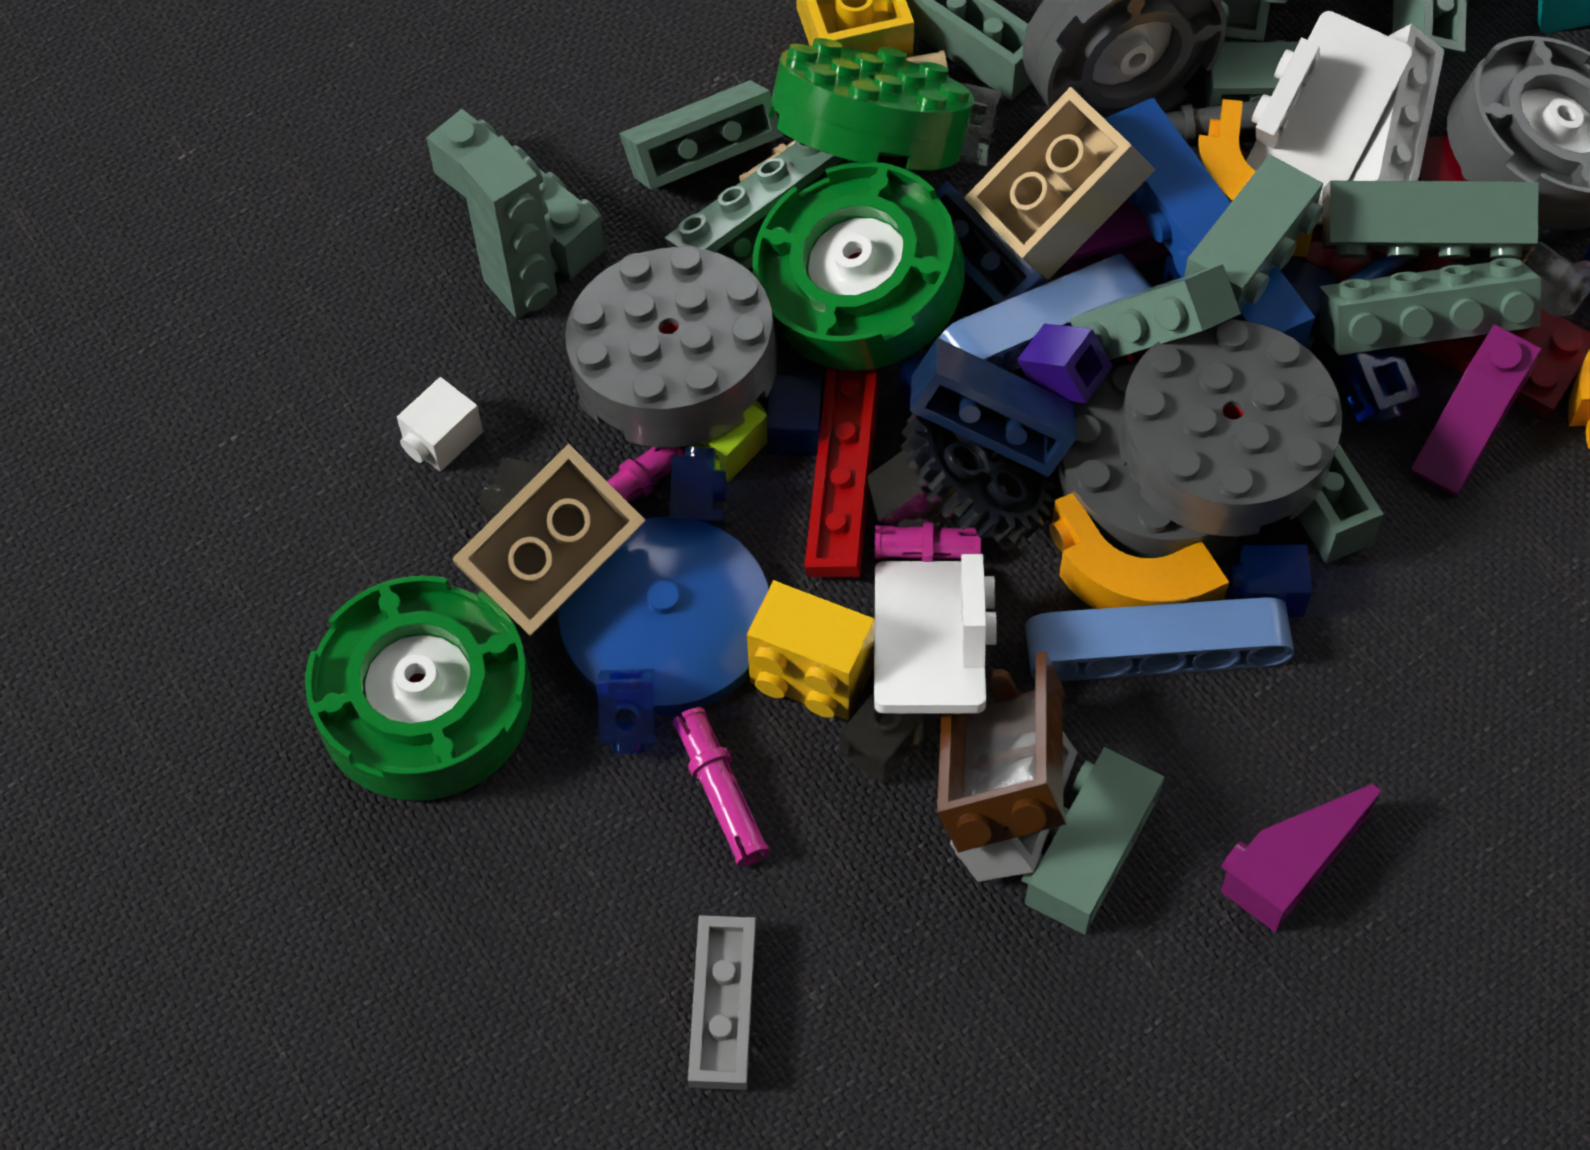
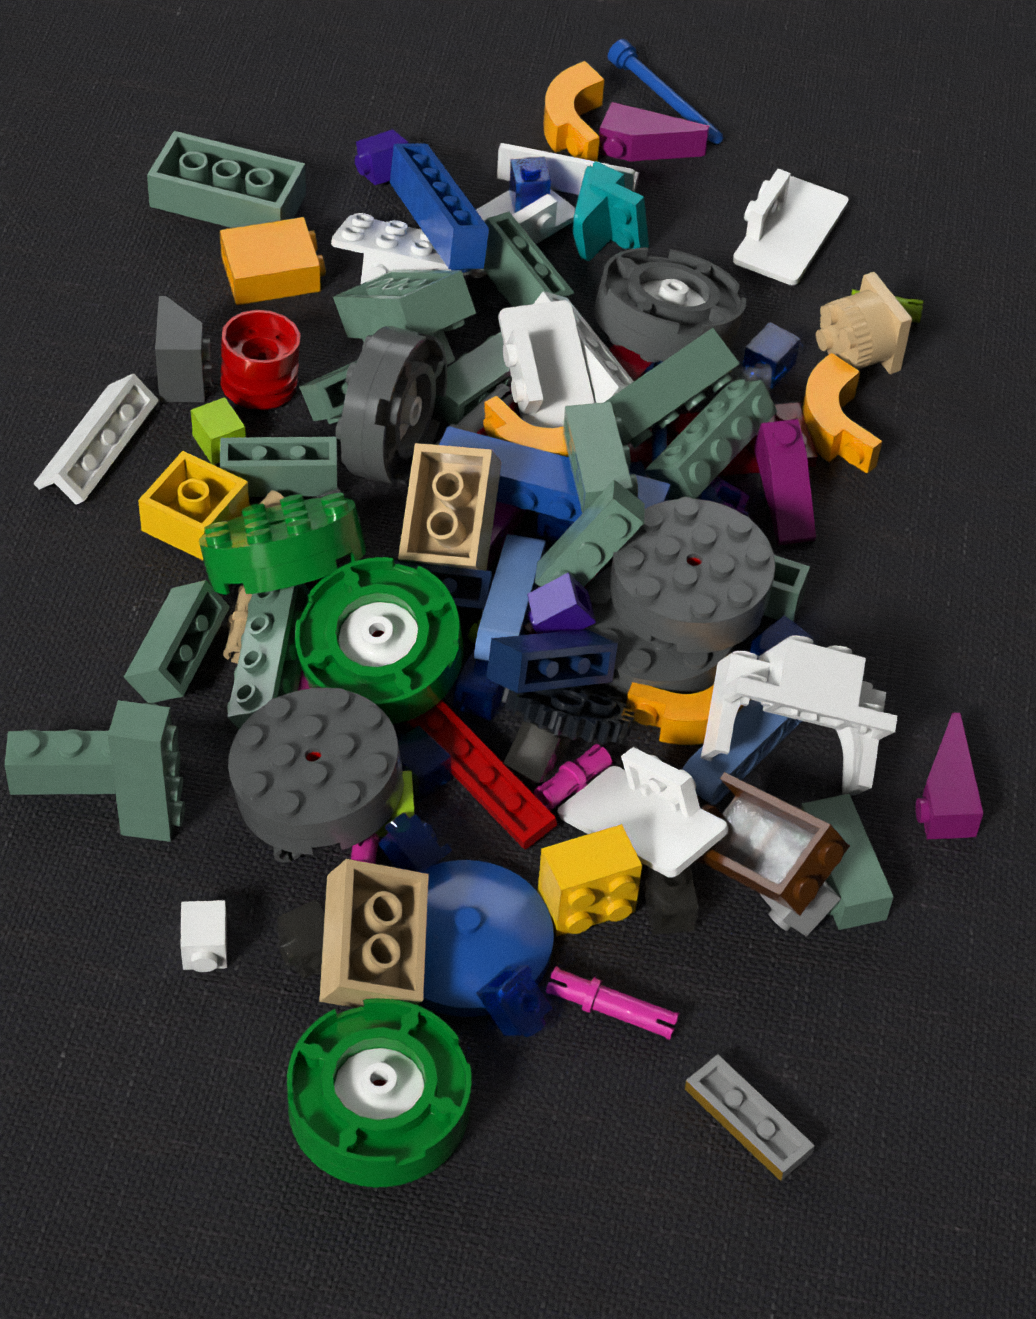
camera: 50 degrees left, 10 degrees down
(1205, 636) = (809, 686): none -> white piece

